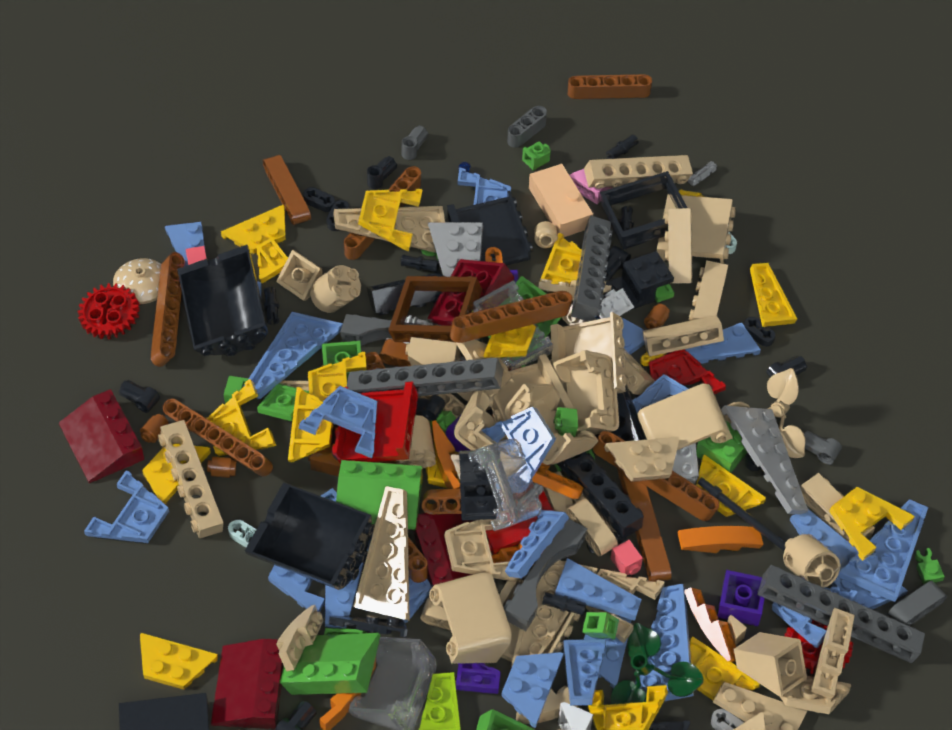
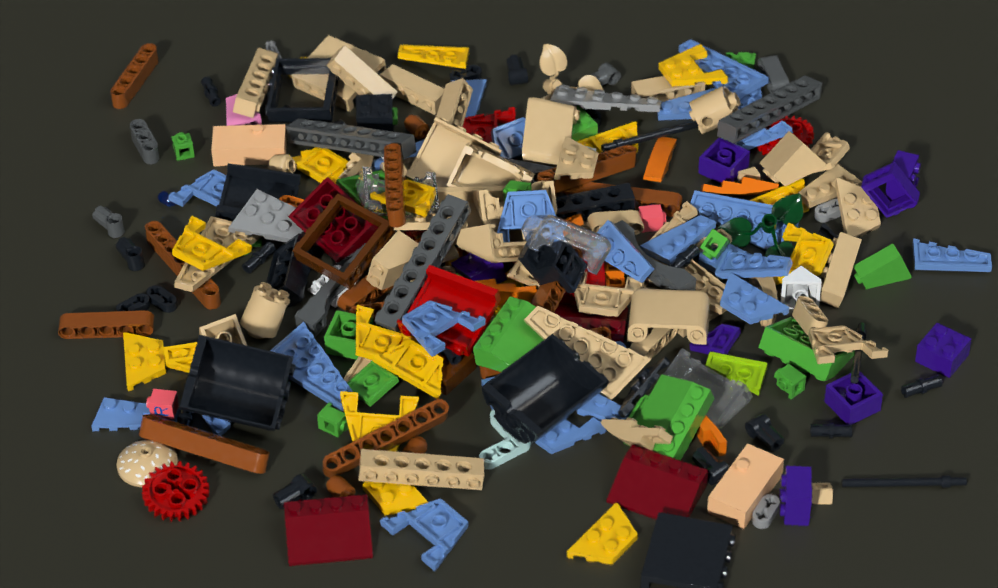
camera: 65 degrees left, 10 degrees down
(832, 653) = (801, 118): tan slope -> none

